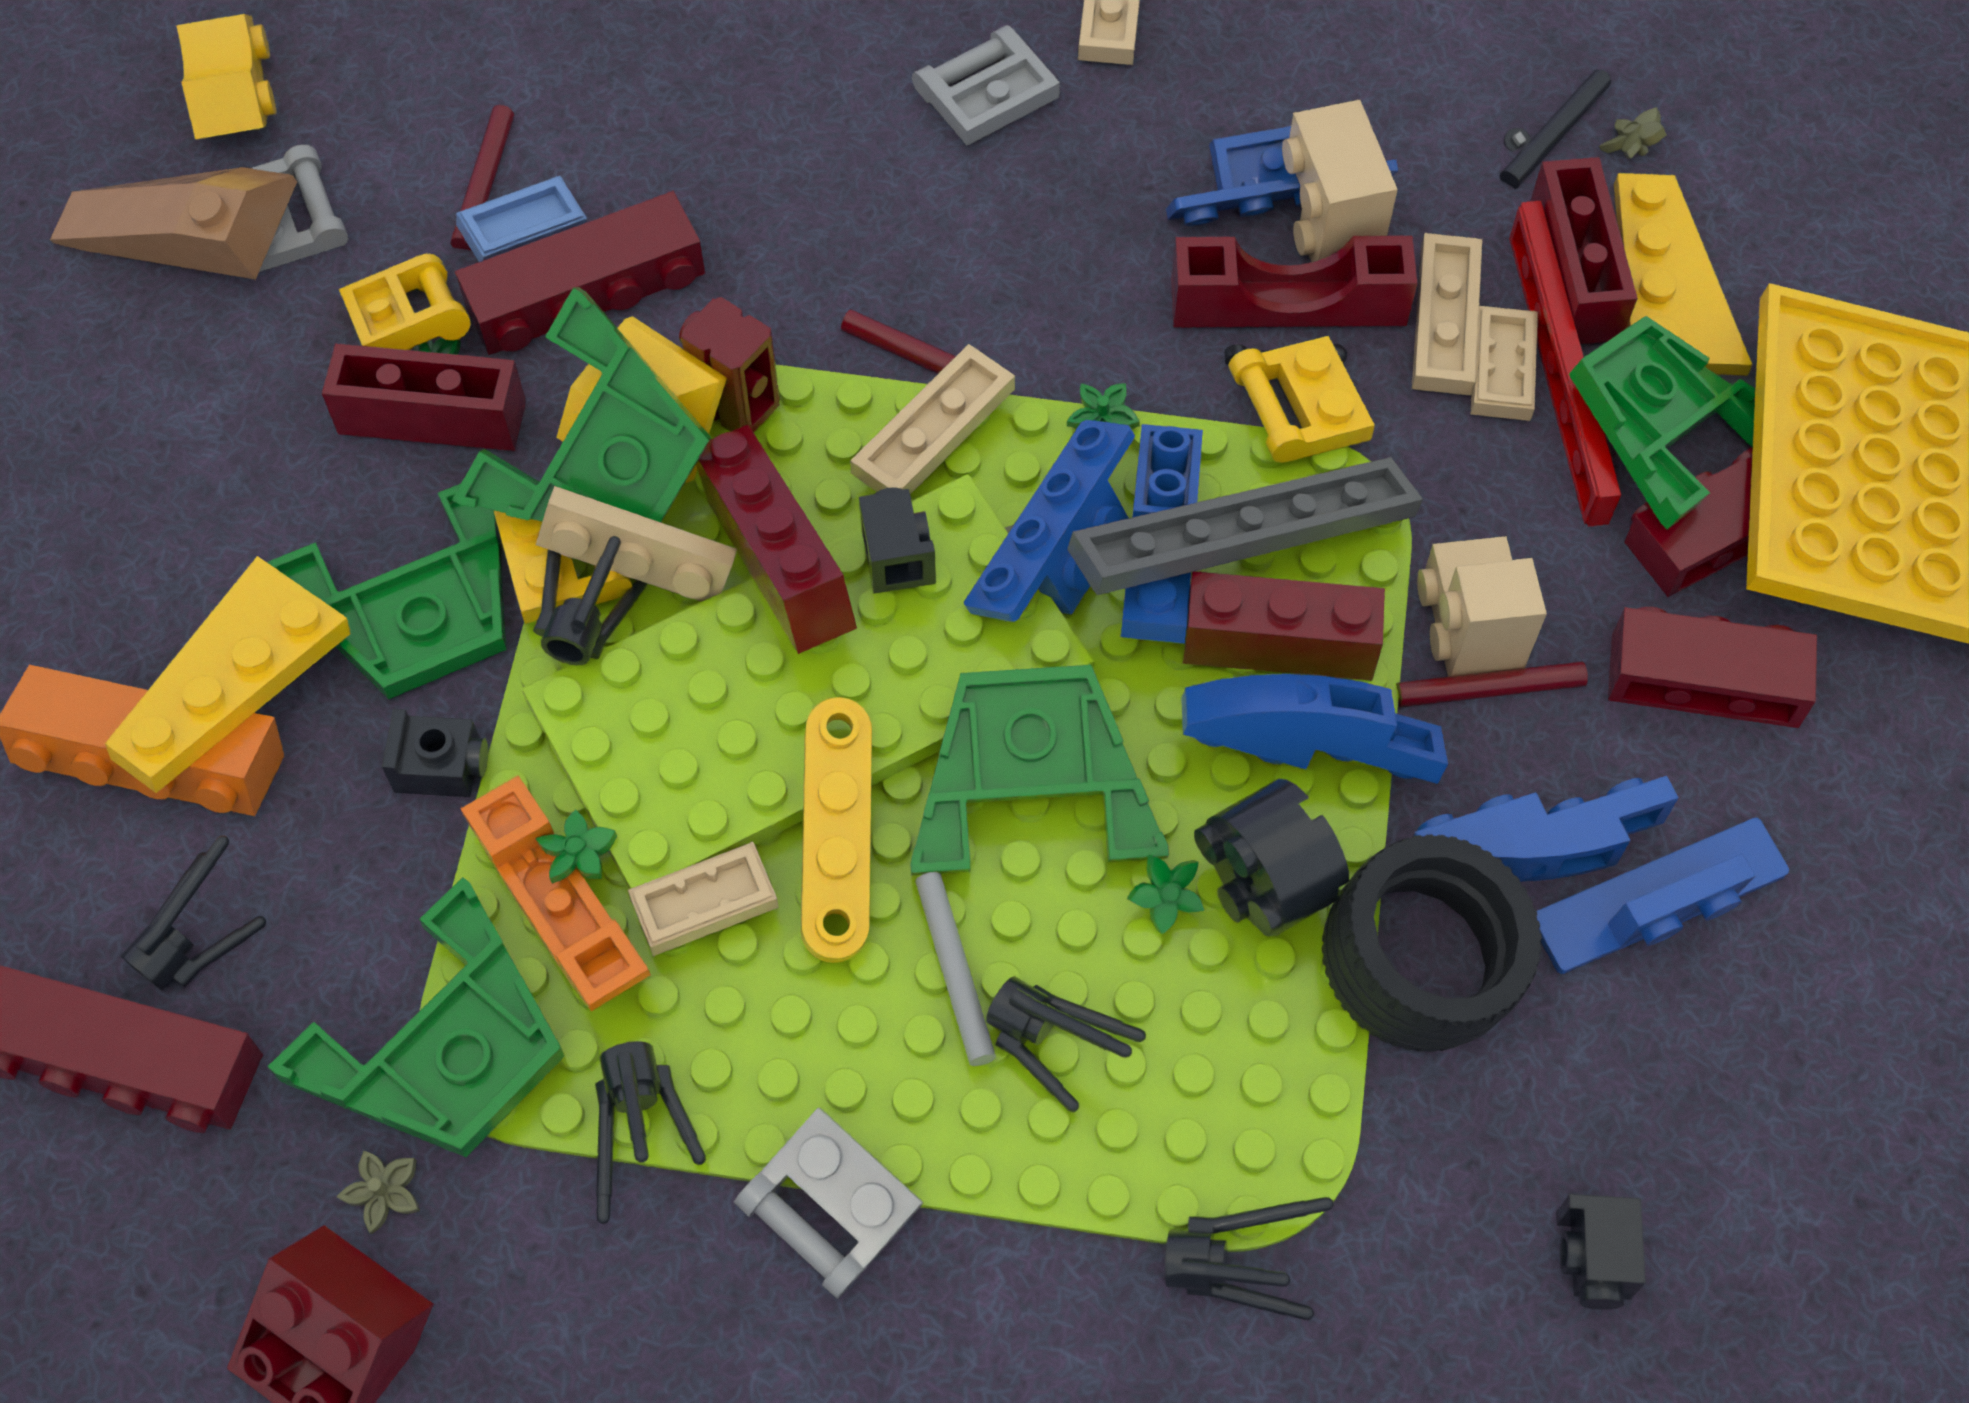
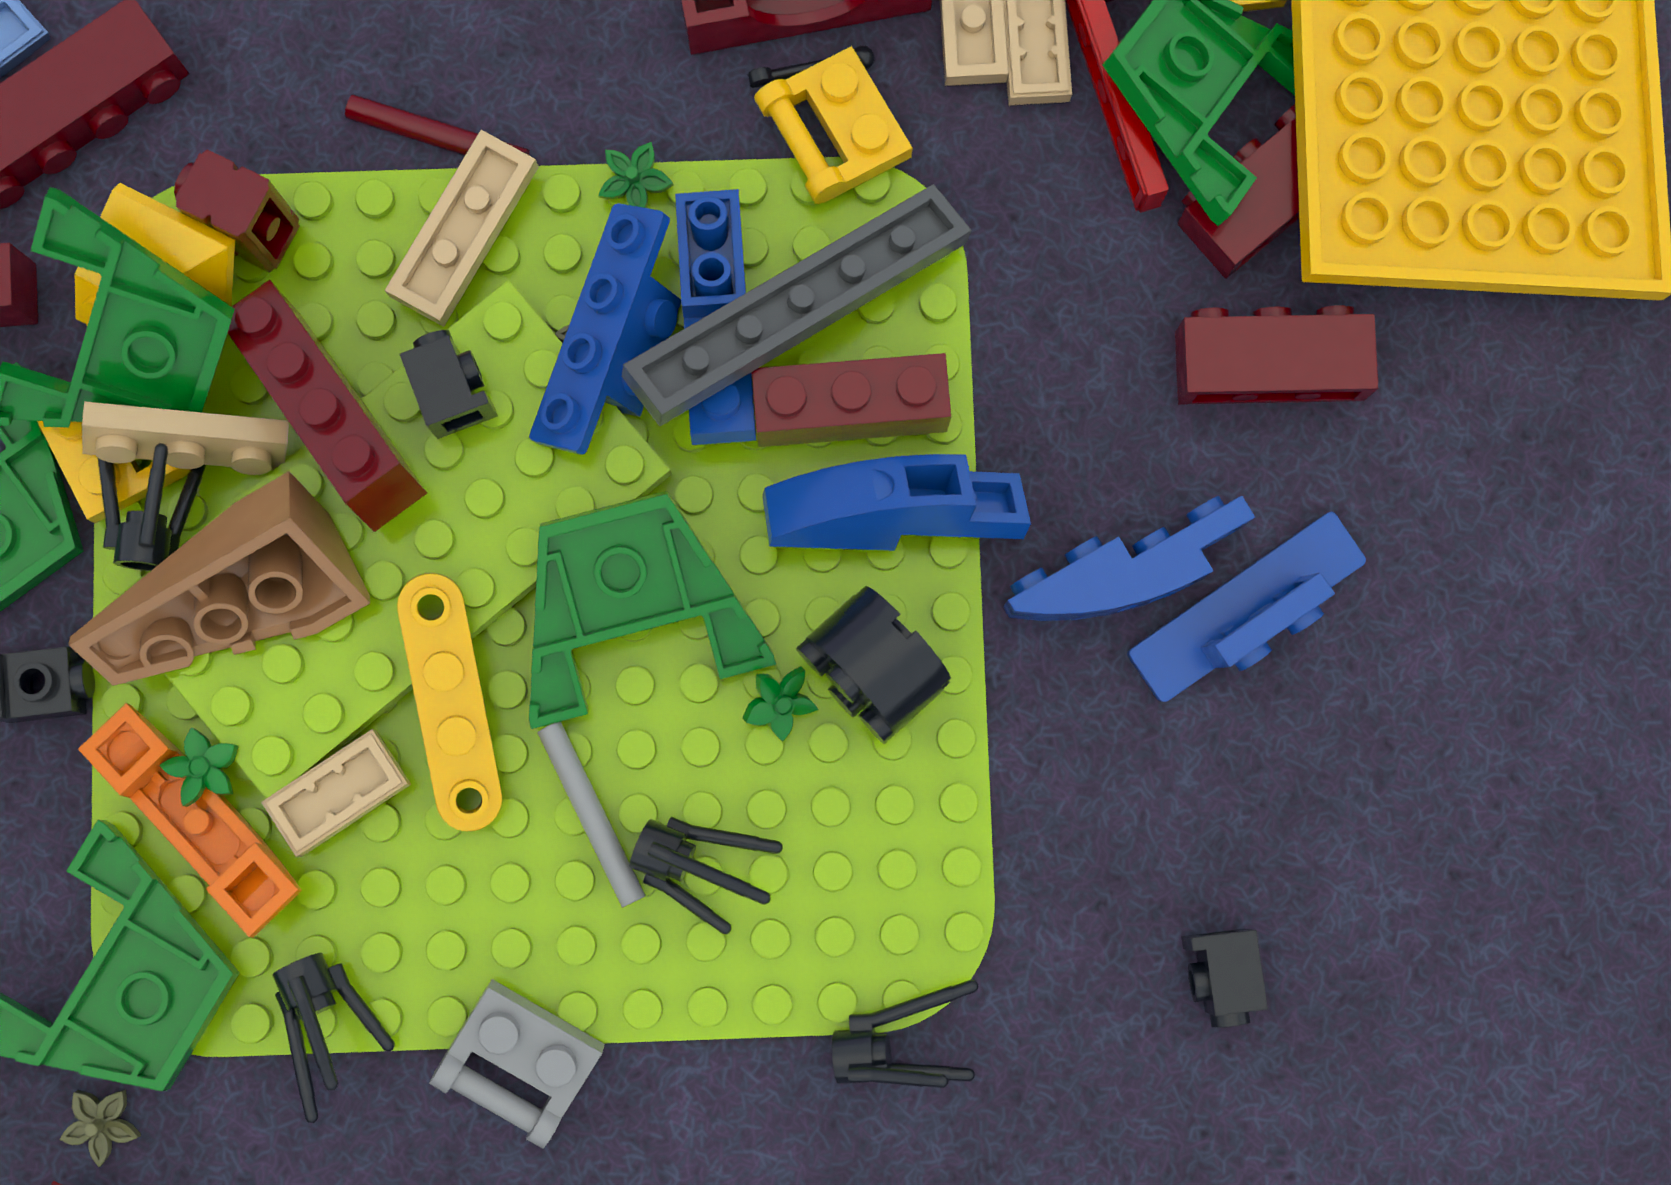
camera: 15 degrees left, 20 degrees up
(657, 679) = (245, 577): none -> medium nougat wedge
(1475, 888) = (1108, 689): black tyre -> none
(1481, 605) = (1043, 335): tan brick -> none
(1492, 684) = (1063, 409): dark red bar -> none

